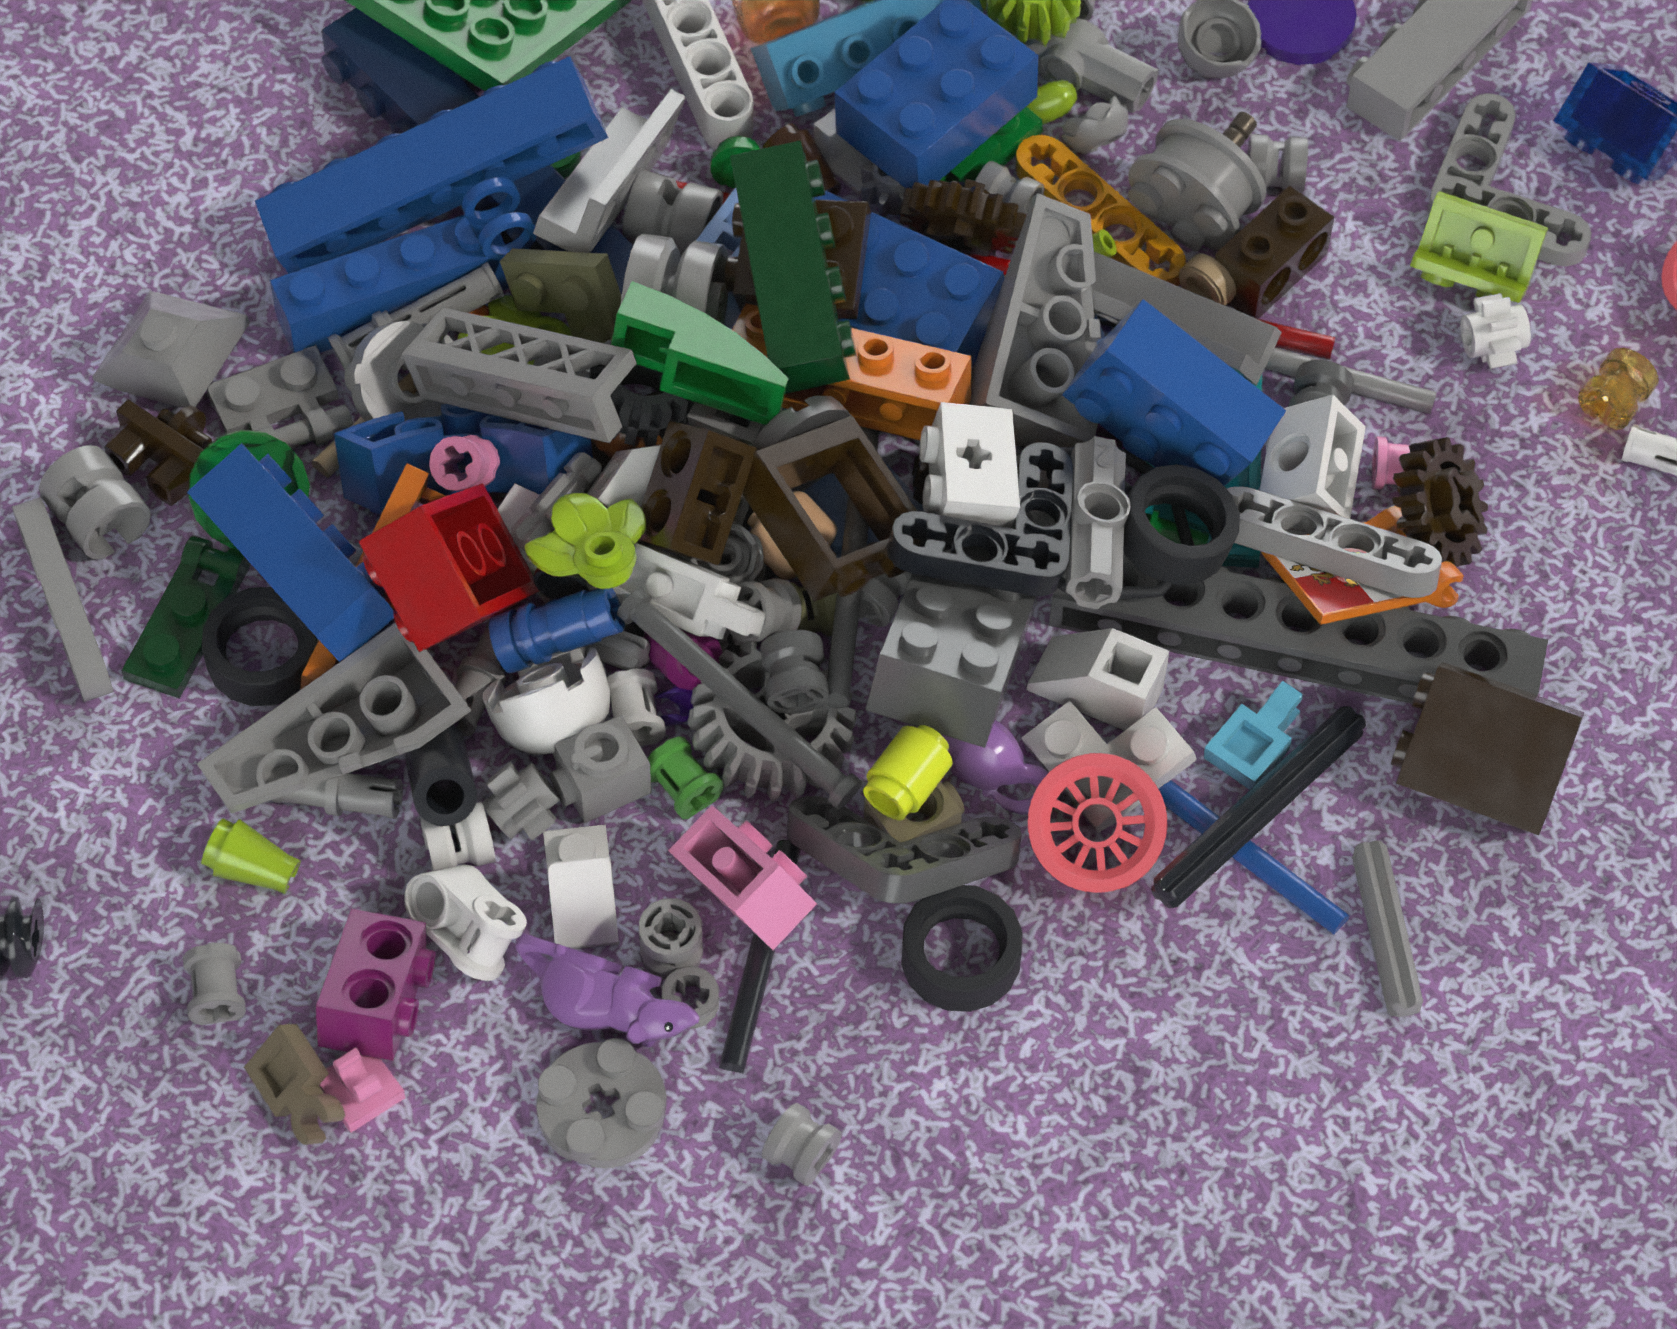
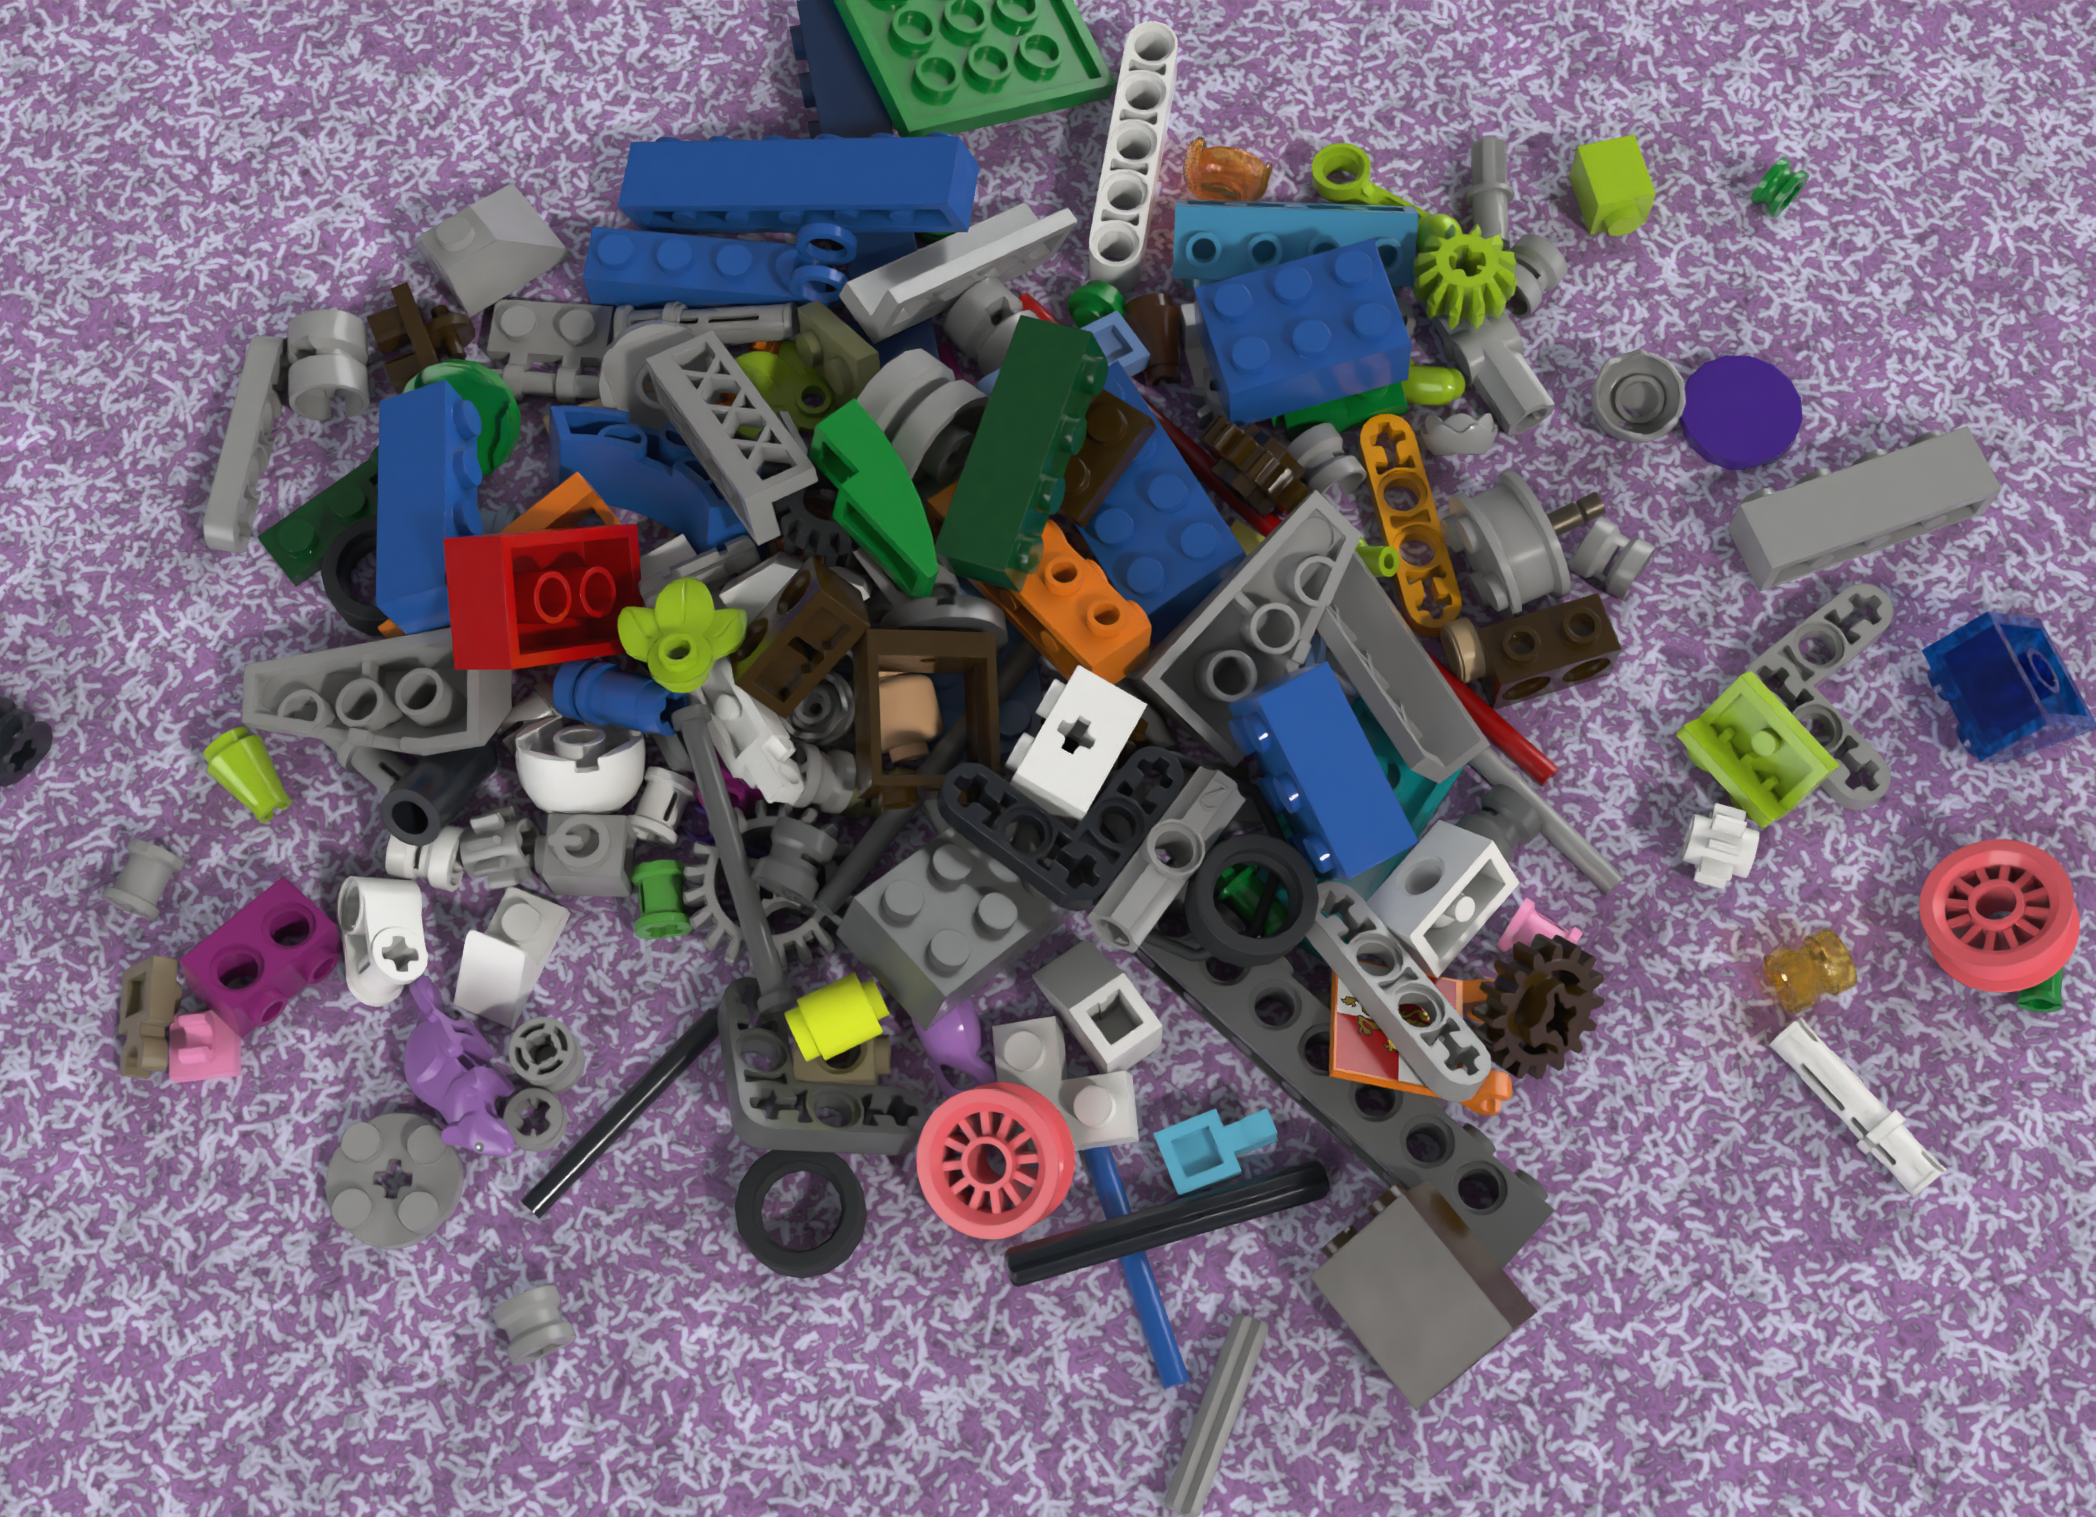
camera: 35 degrees right, 10 degrees up
(451, 451) = (625, 494): bright pink bush -> none
(743, 877) = (633, 1036): bright pink brick -> none

